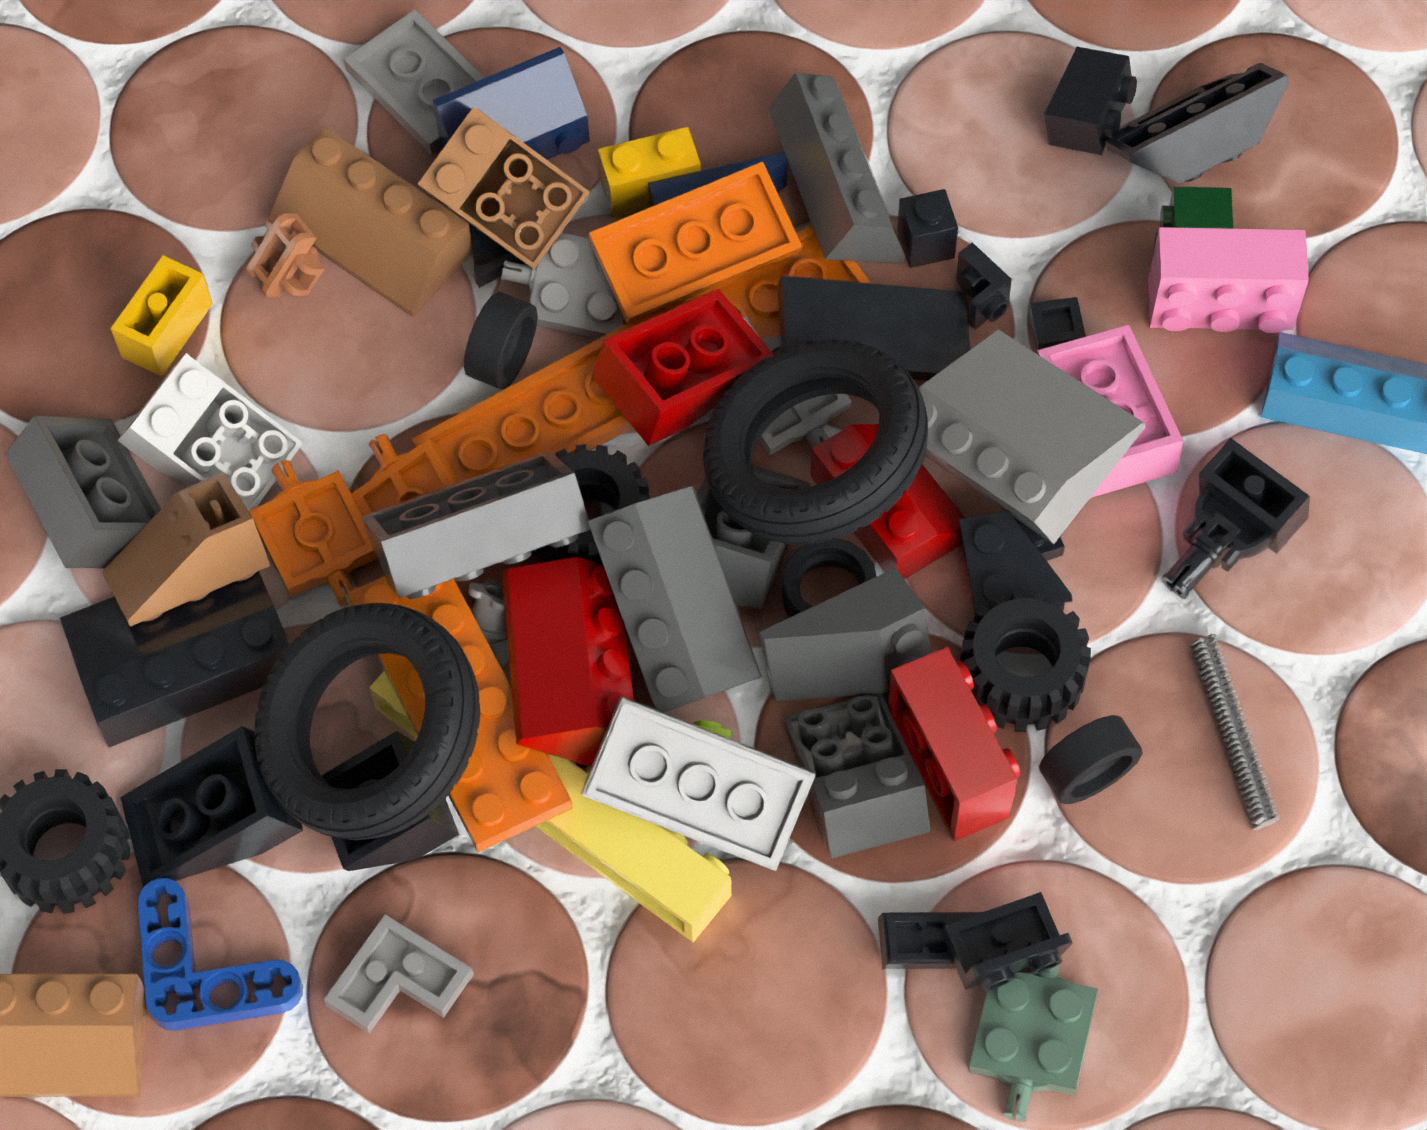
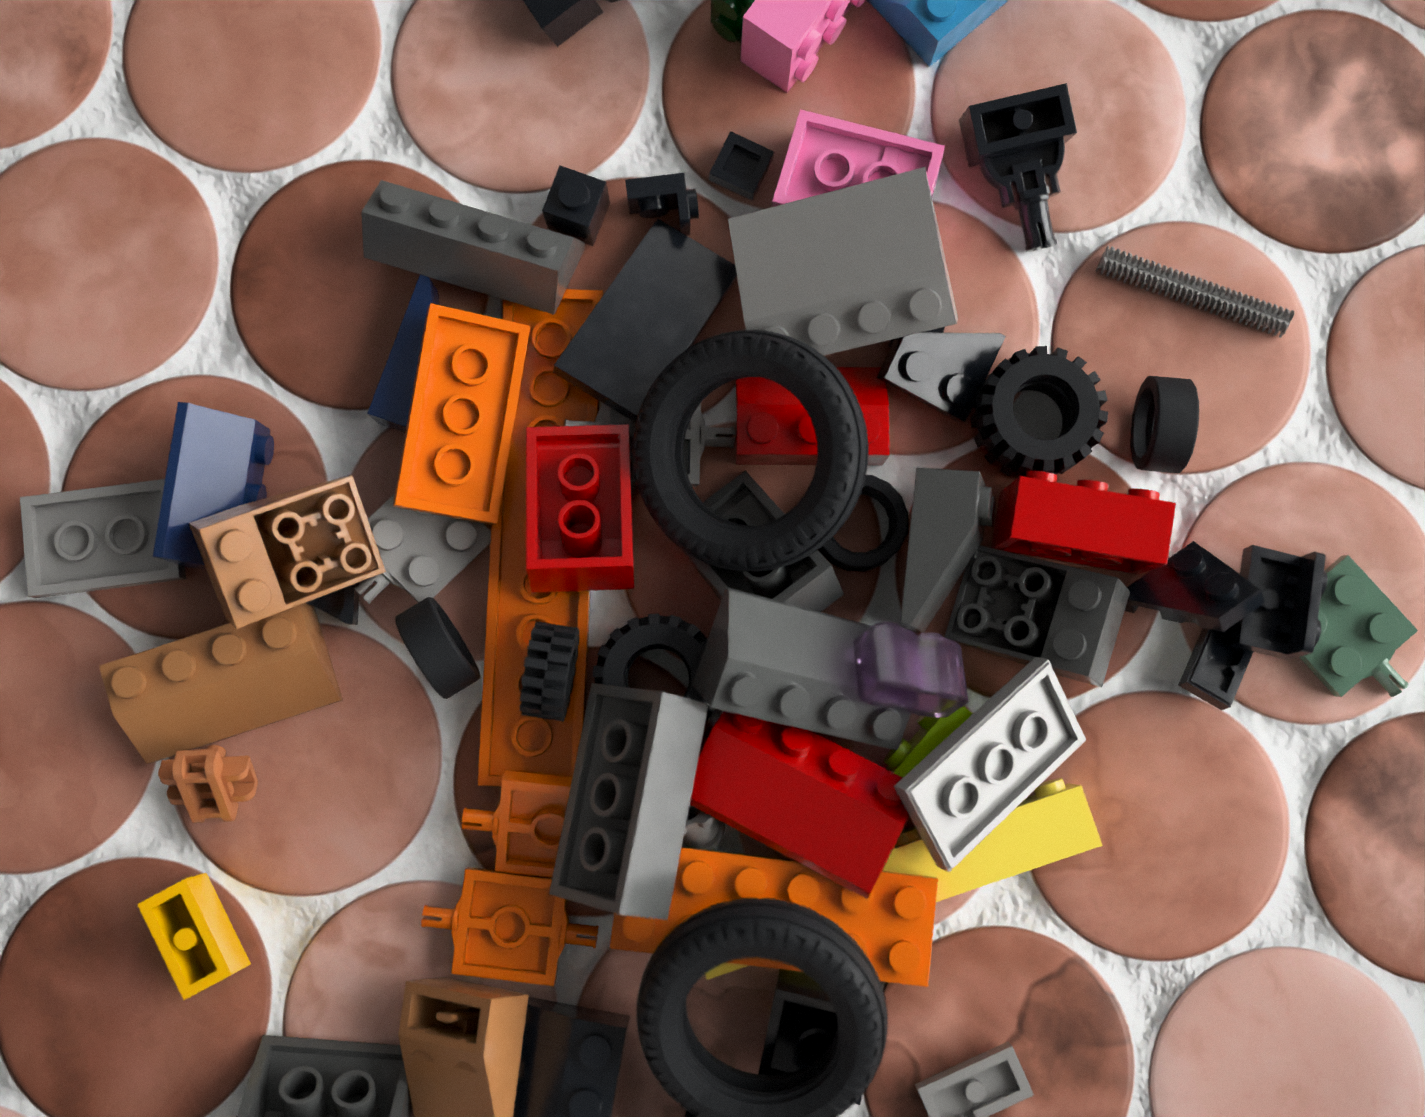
camera: 60 degrees left, 20 degrees up
(205, 428) = (349, 963): white slope -> none
(537, 416) = (549, 671): none -> black tyre
(633, 164) = (342, 402): yellow brick -> none
(726, 668) = (910, 670): none -> clear purple brick
(966, 873) = (1196, 590): none -> black wing

